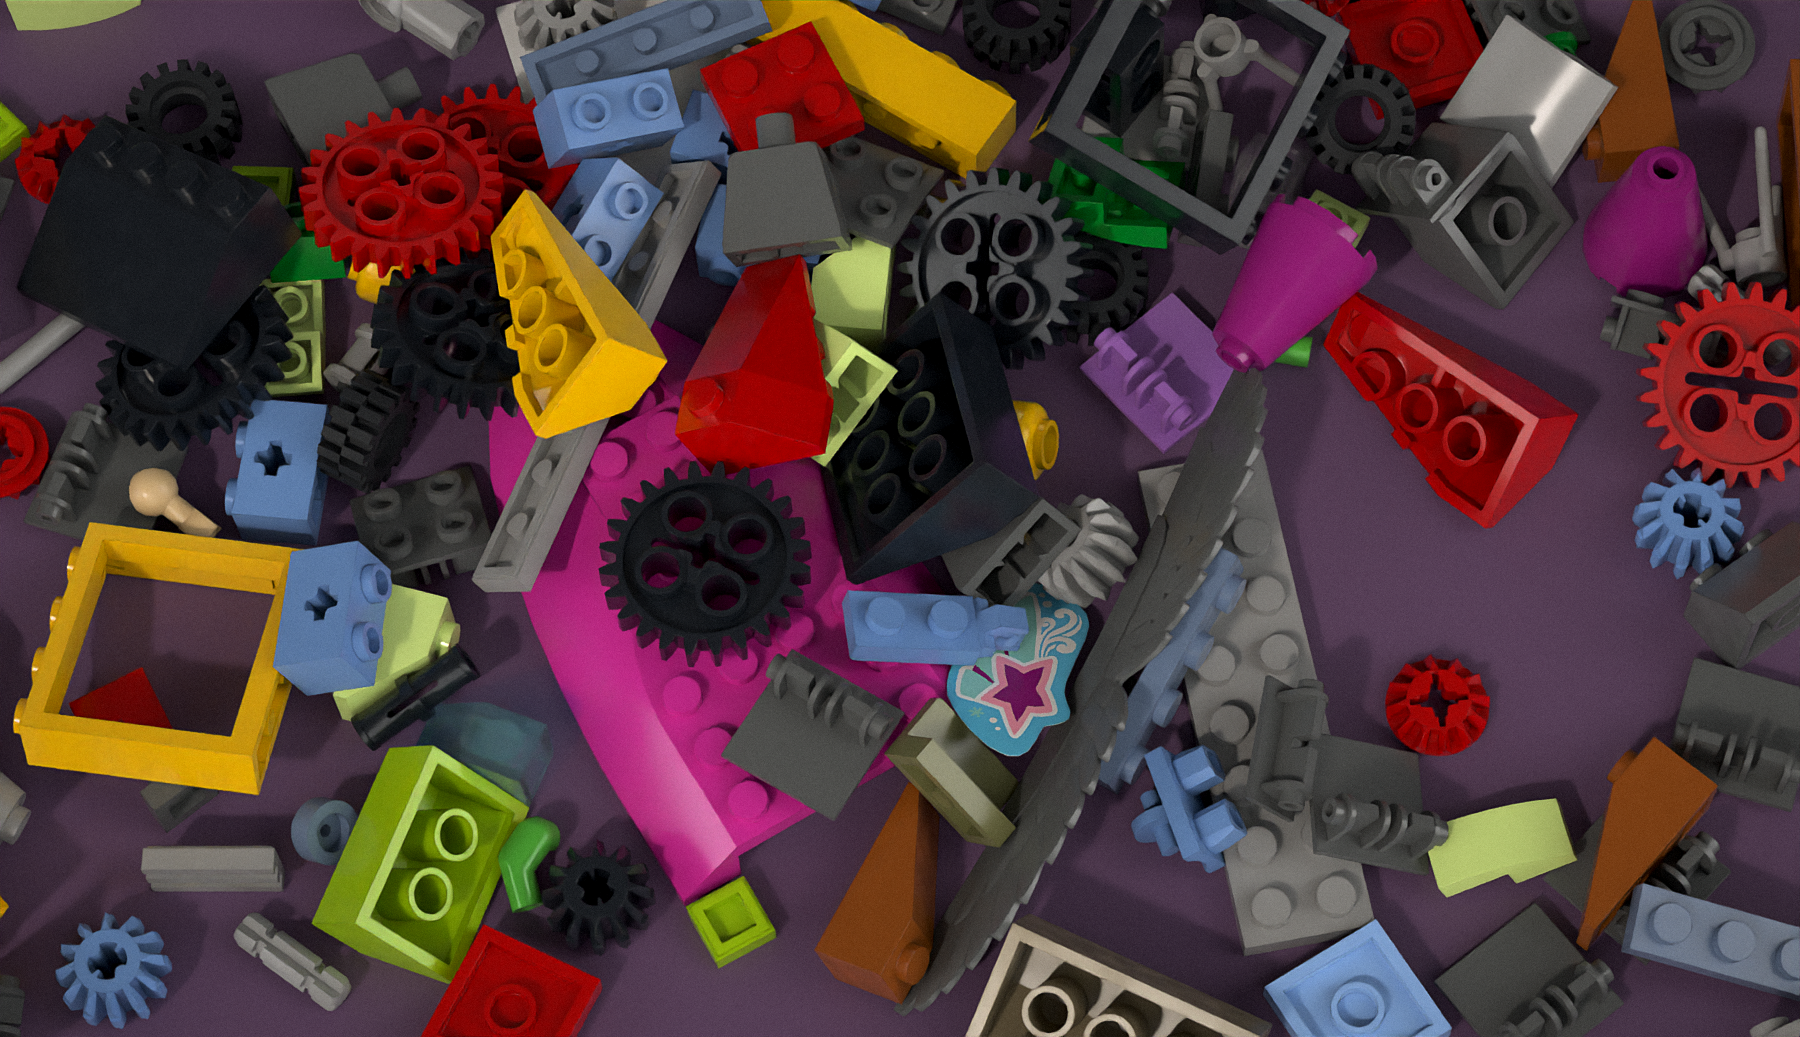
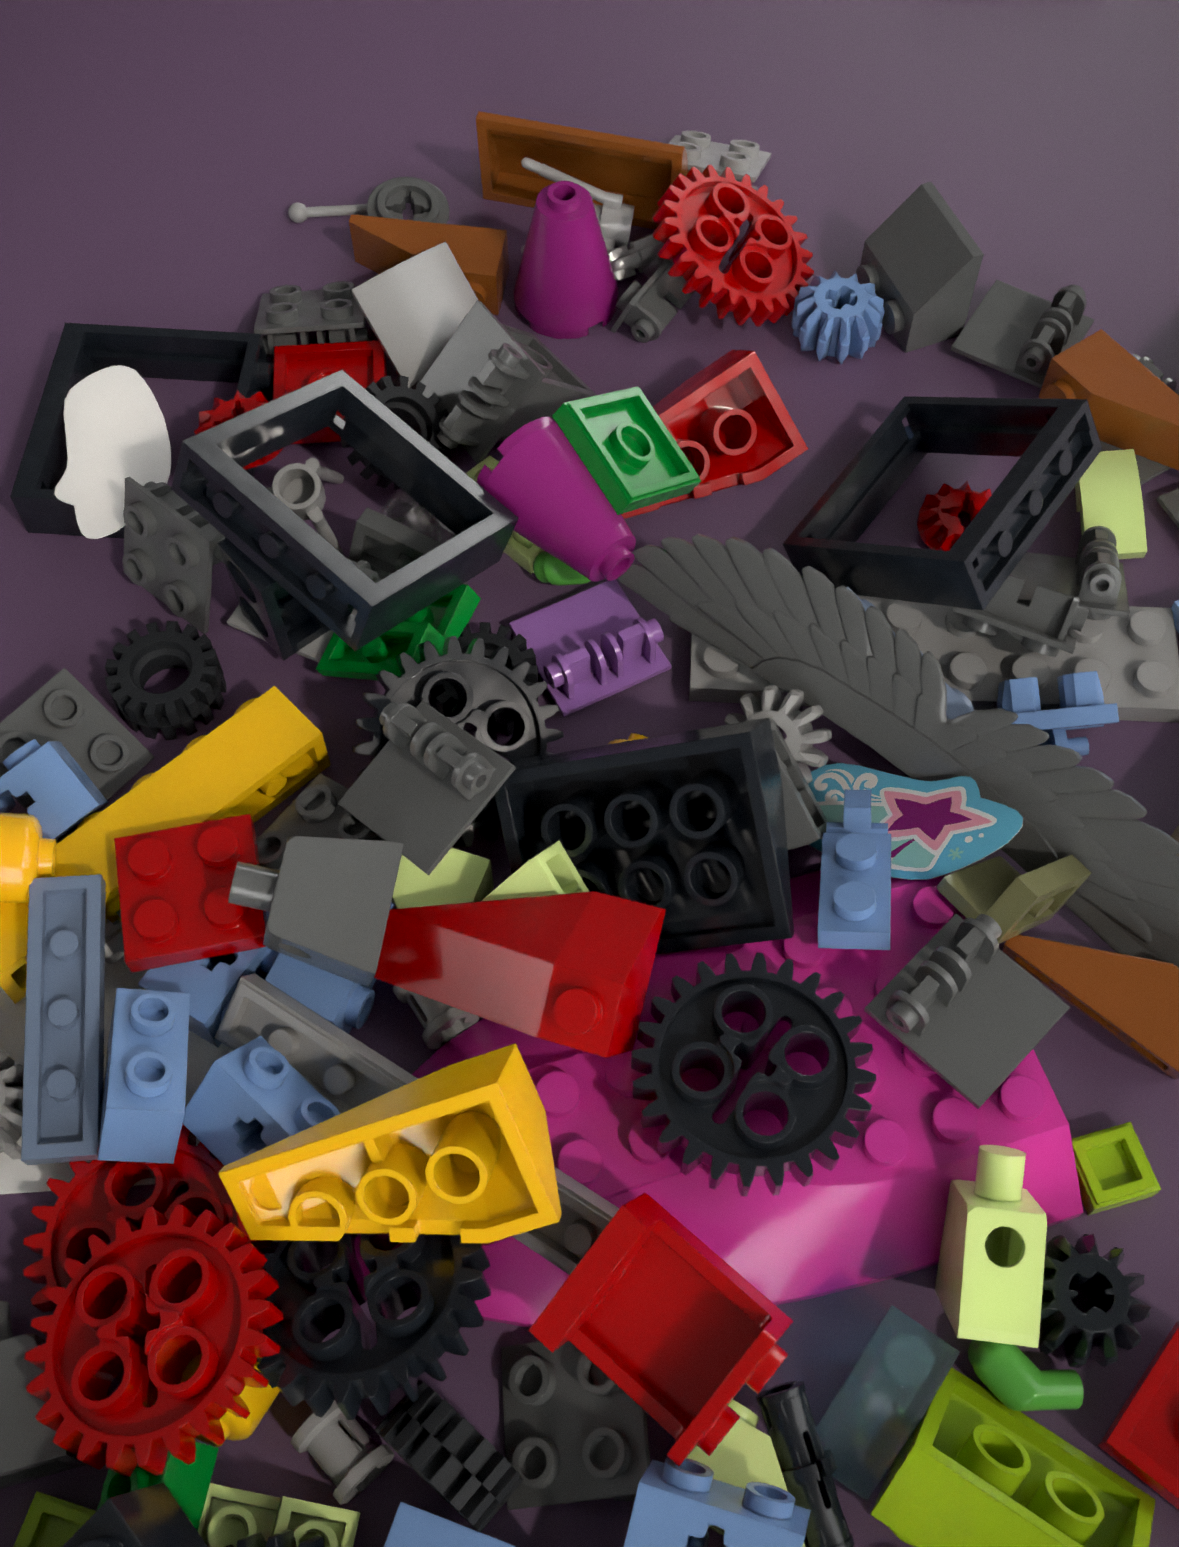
camera: 80 degrees left, 5 degrees down
(485, 538) = (667, 1324): none -> red panel
(603, 793) = (993, 1253): none -> yellowish green torso
(918, 241) = (425, 783): none -> dark grey hinge
(1365, 325) = (626, 449): none -> green tile
(1390, 699) = (1054, 449): none -> black window

